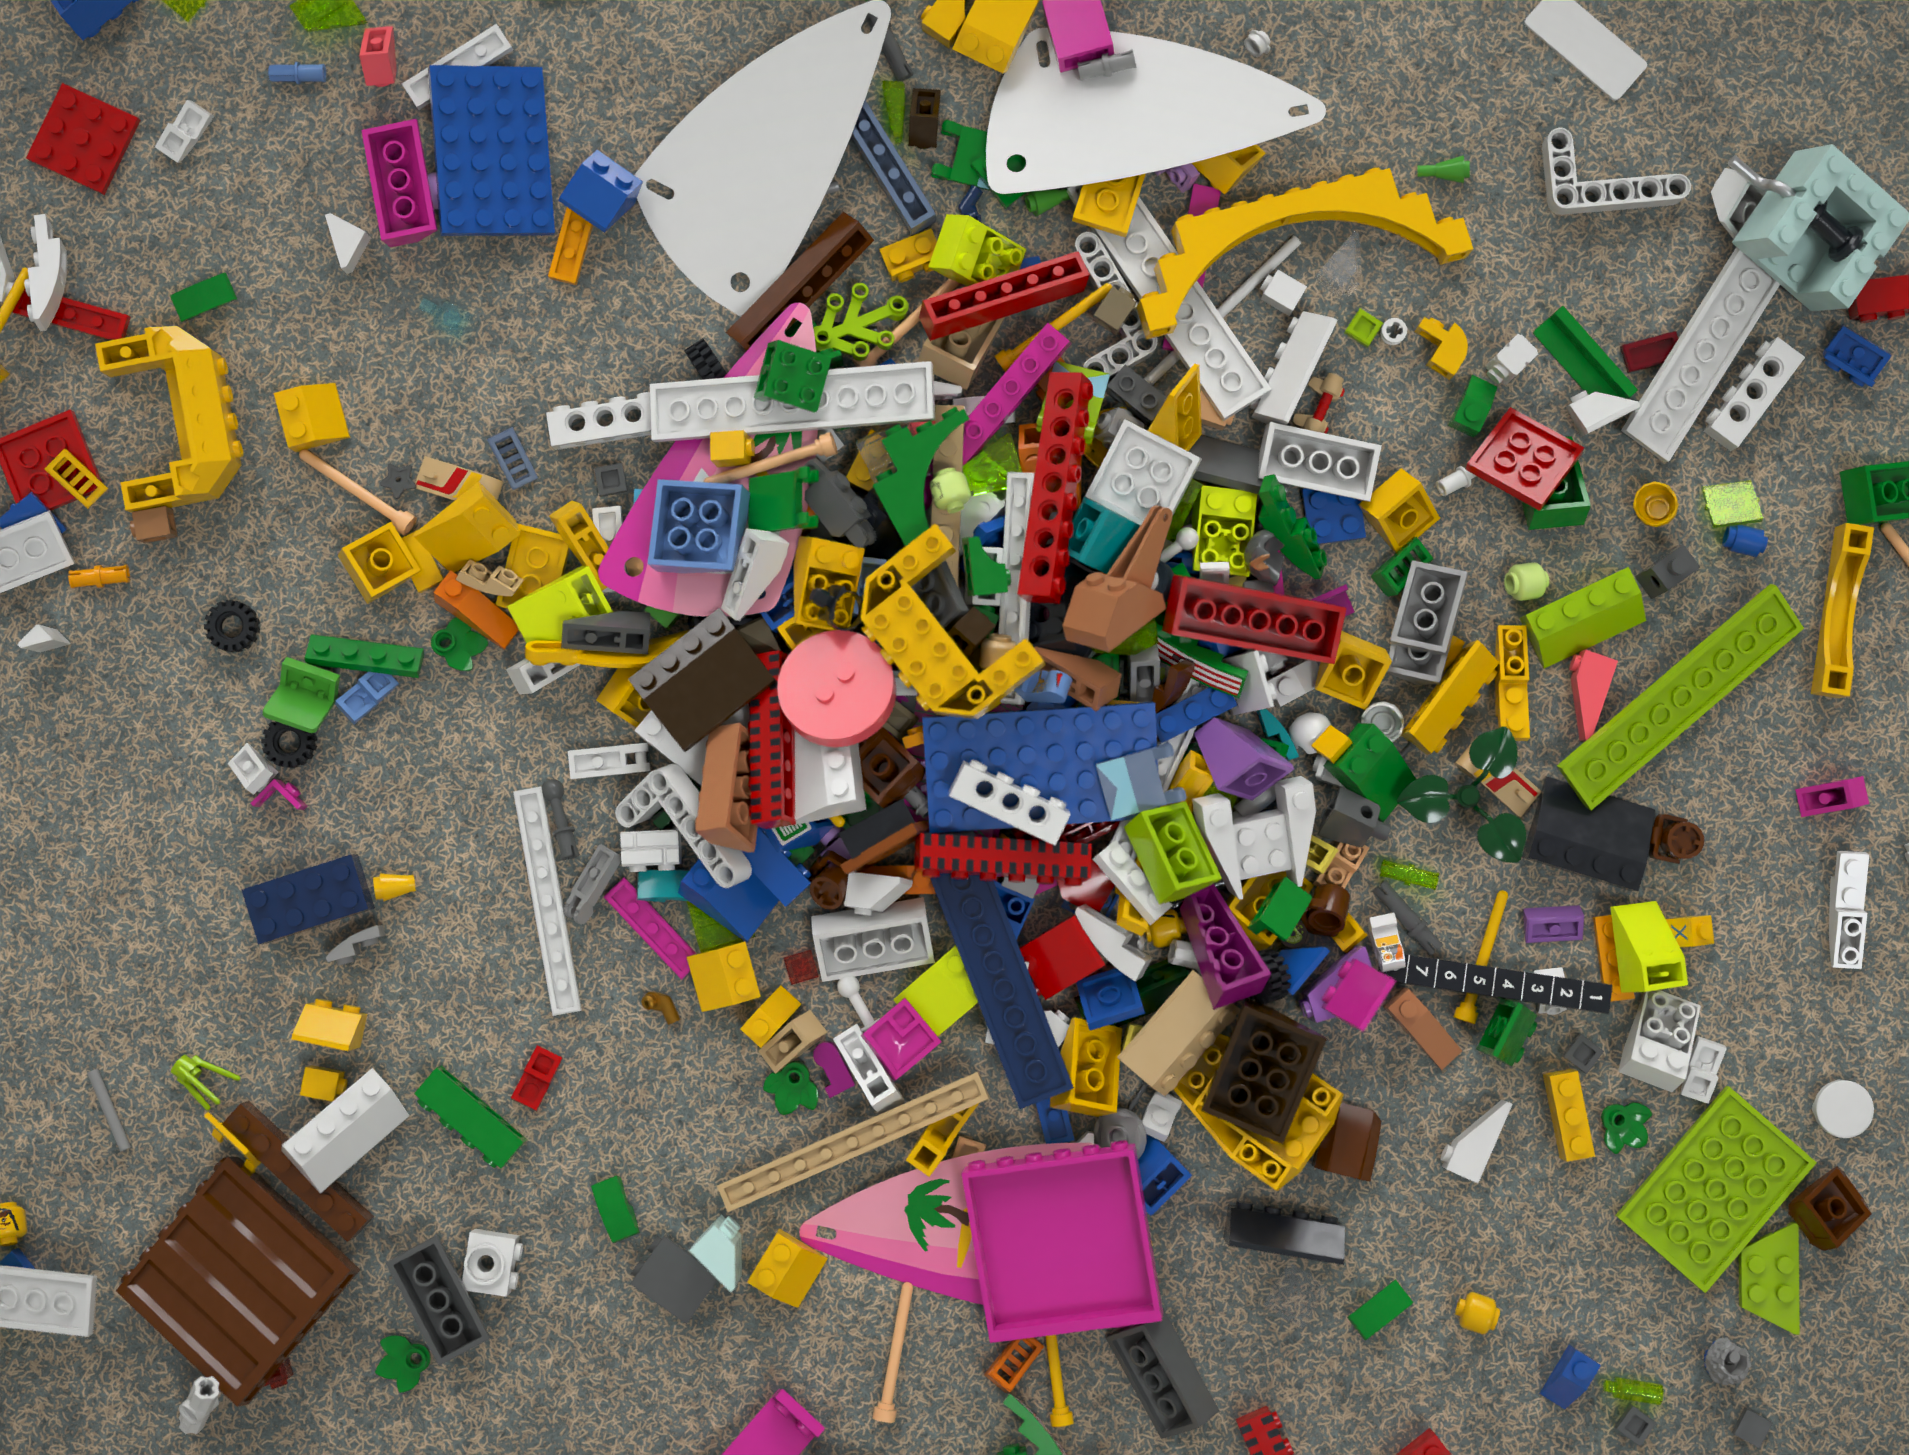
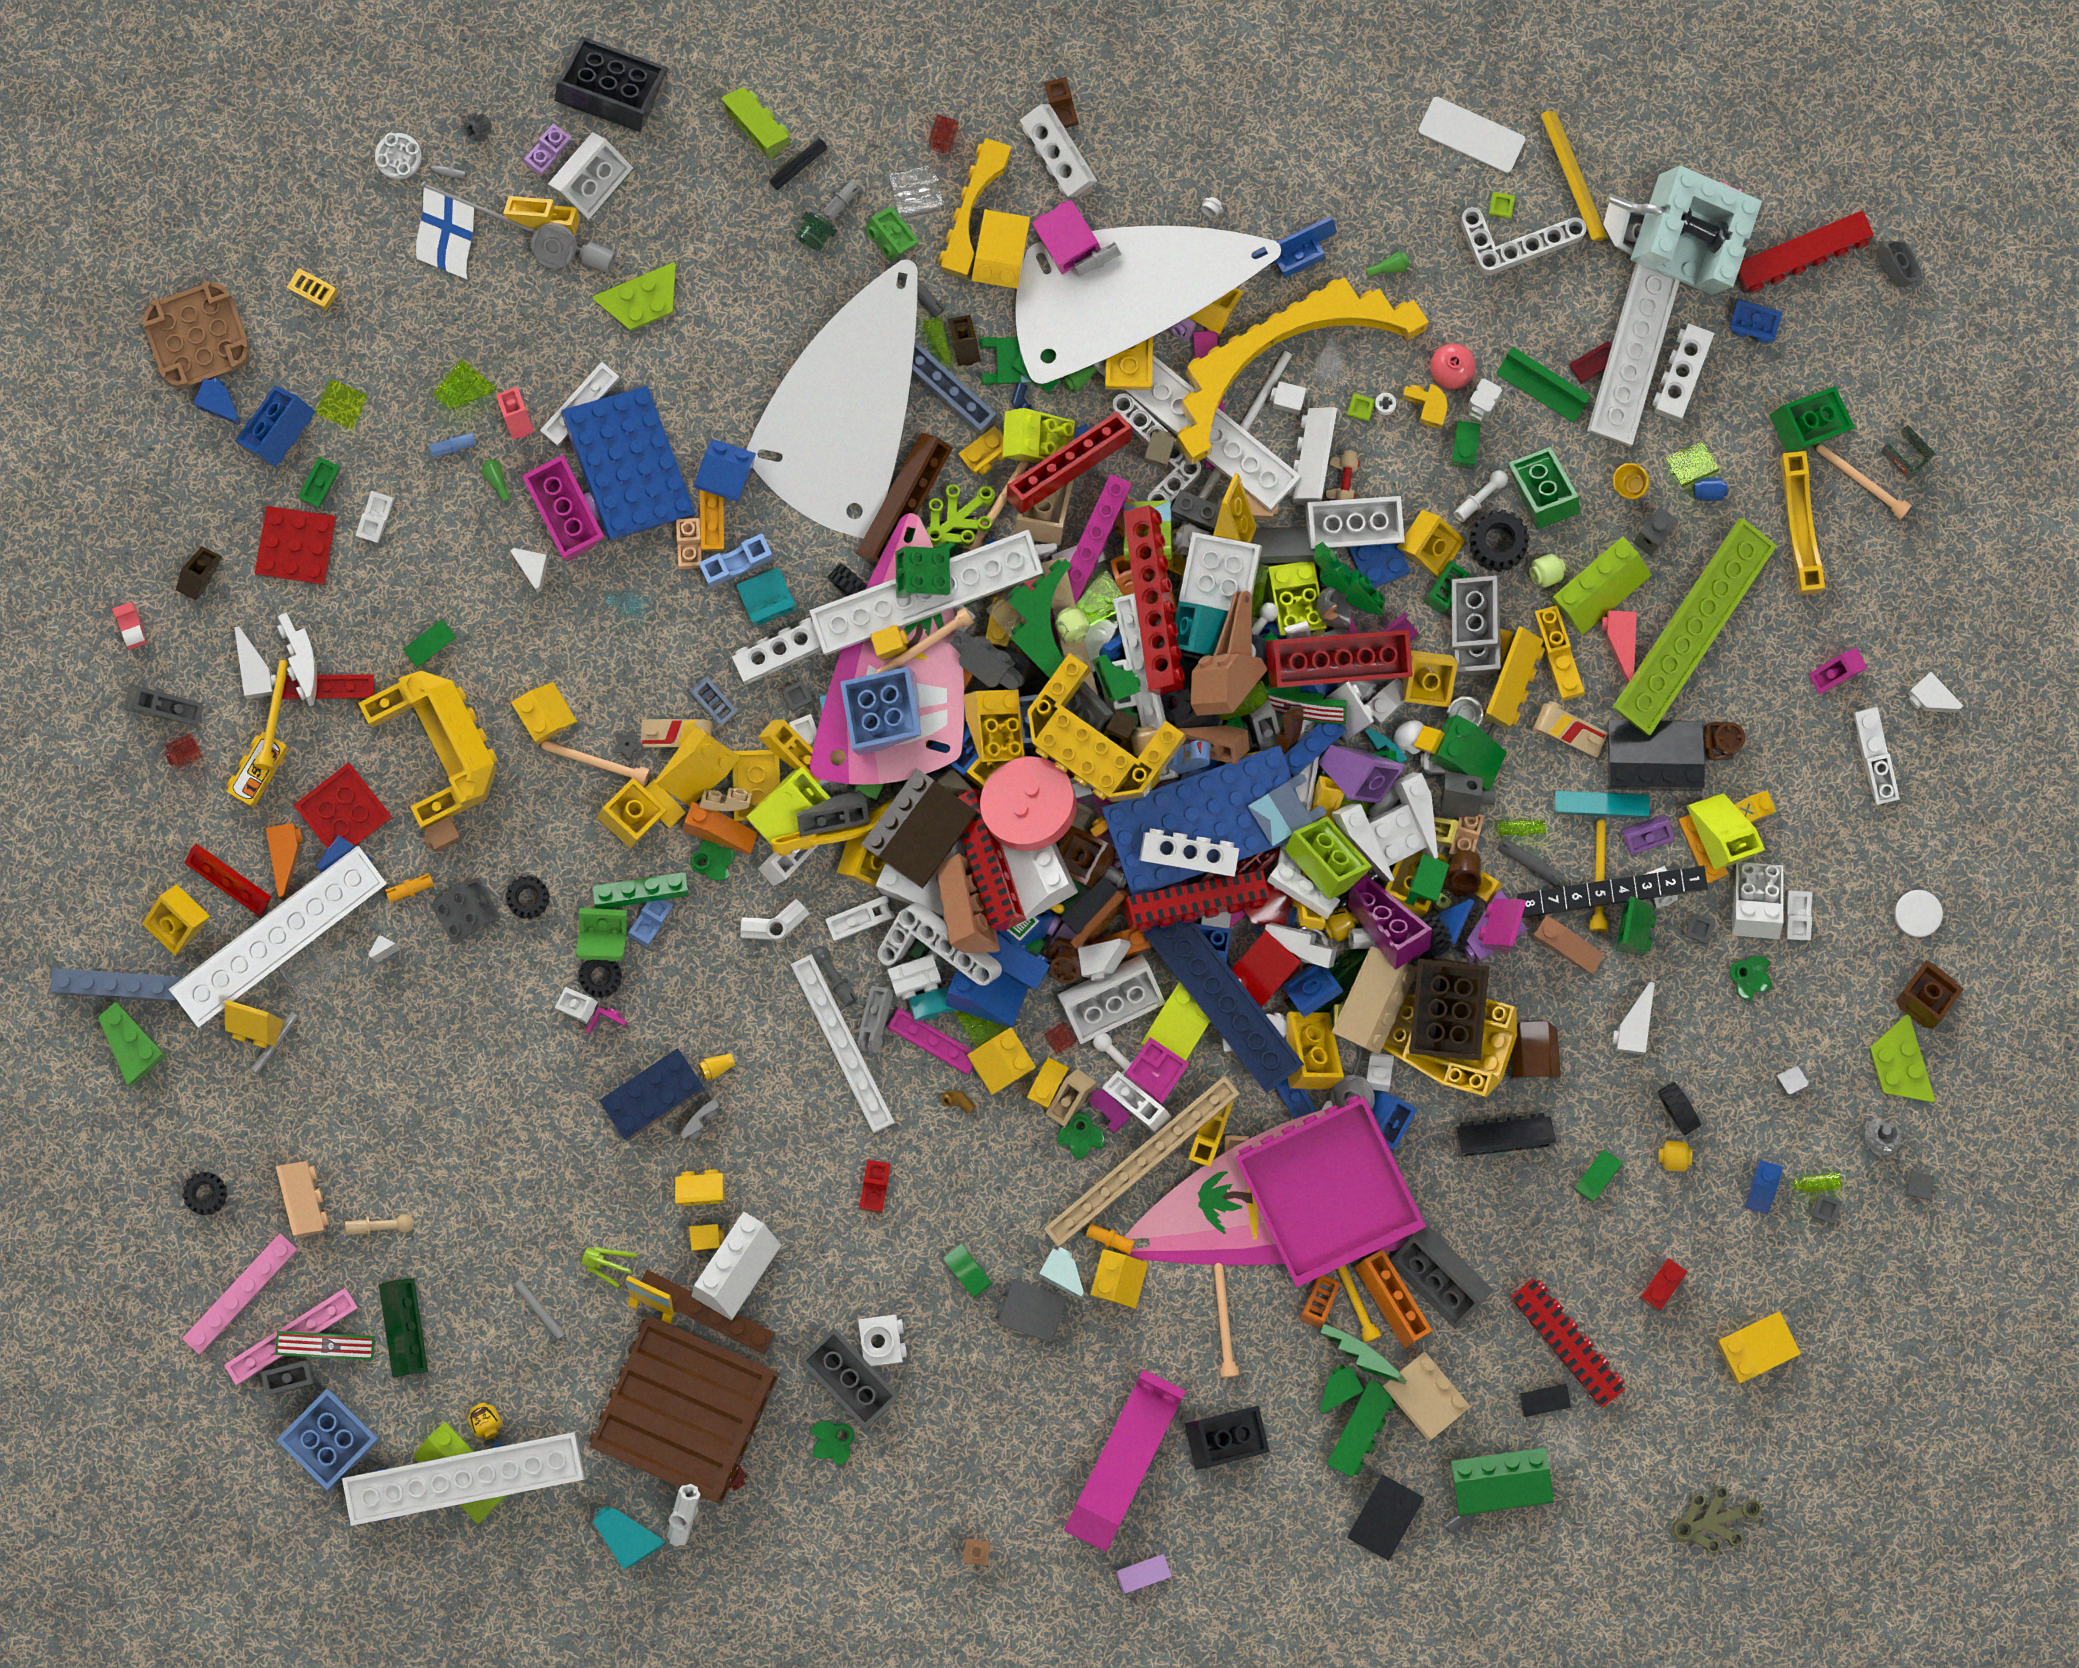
camera: 15 degrees left, 5 degrees down
(61, 478) = (375, 807): yellow slope -> none
(128, 1408) = (626, 1537): none -> teal slope
(130, 73) = (319, 482): none -> green plate
(157, 620) = (465, 910): none -> dark grey bracket
(335, 121) = (493, 473): none -> bright green cone
(470, 1117) = (831, 1230): green brick -> none
(491, 740) = (760, 928): none -> white piece
(536, 267) = (689, 543): none -> light nougat slope
(568, 305) = (730, 565): none -> light blue arch
(608, 354) = (766, 597): none -> teal bracket
(755, 568) = (938, 725): white slope -> none
(777, 501) = (939, 672): green flag -> none
(791, 1219) = (1110, 1238): none -> light orange pin
(827, 602) = (1002, 736): black piece -> none
(1008, 357) = (1086, 510): yellow piece -> none
(1100, 1388) = (1393, 1298): none -> orange brick
(1349, 120) = (1301, 248): none -> blue bracket
(1386, 942) = (1518, 883): white leg -> none
(1428, 797) = (1518, 763): dark green plant -> none
(1477, 318) = (1450, 376): none -> coral cylinder
(1499, 1261) = (1679, 1108): none -> black tyre
(1500, 517) = (1493, 559): none -> black tyre
(1514, 876) = (1601, 804): none -> teal slope
(1524, 458) = (1516, 474): plate -> none
(1568, 1115) = (1702, 979): yellow brick -> none
(1596, 136) = (1501, 205): none -> lime tile
(1597, 410) = (1564, 420): white slope -> none
(1639, 1263) = (1792, 1081): none -> slope
(1692, 124) = (1574, 176): none -> yellow tile
(1715, 1189) = (1836, 1005): lime plate -> none

